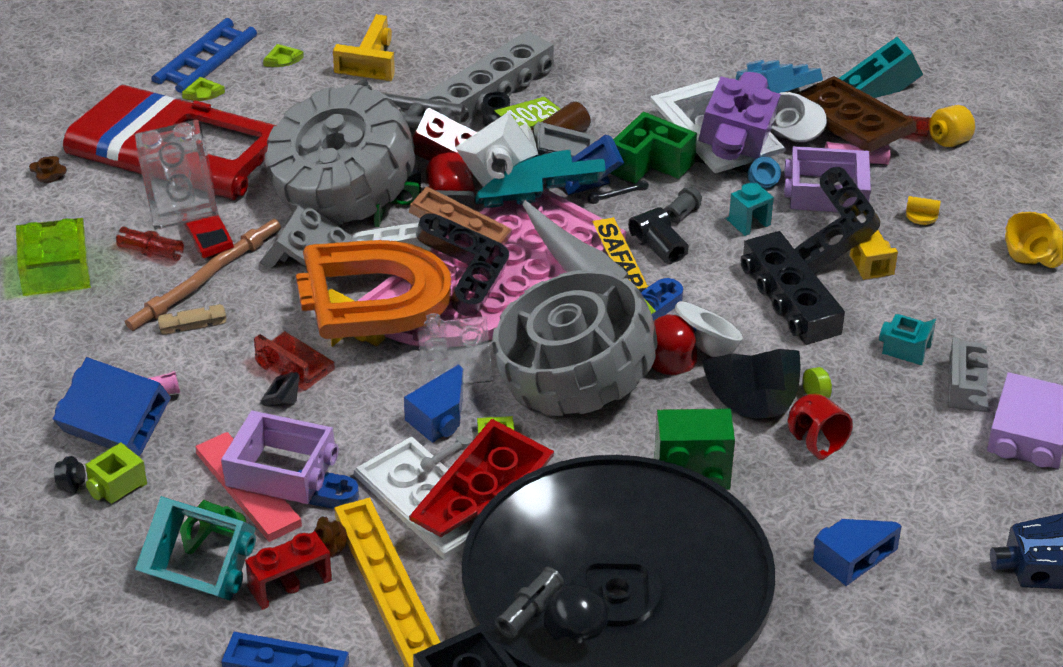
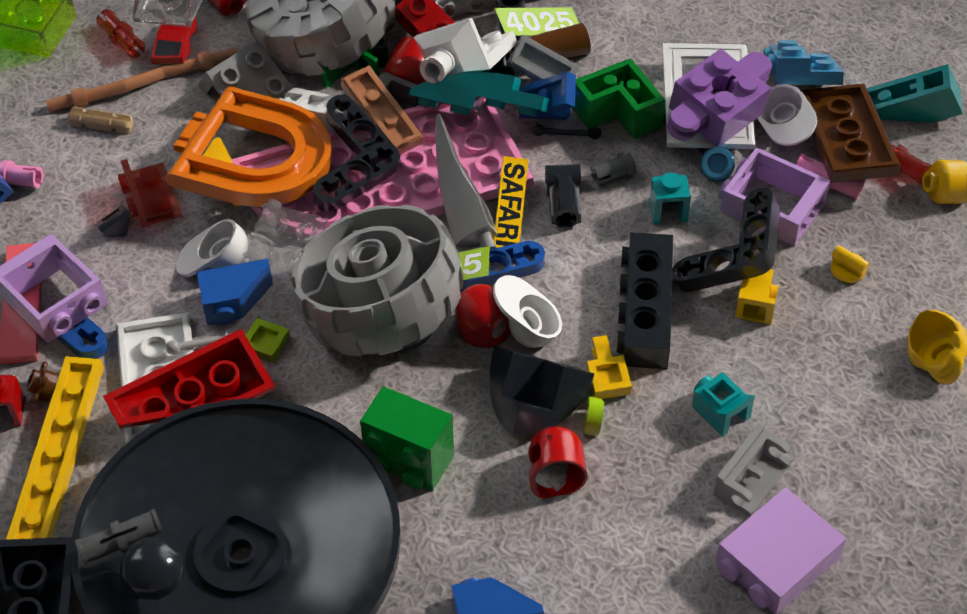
camera: 30 degrees right, 10 degrees up
(393, 378) = (213, 248): none -> white cap
(812, 352) = (611, 373): none -> yellow plate

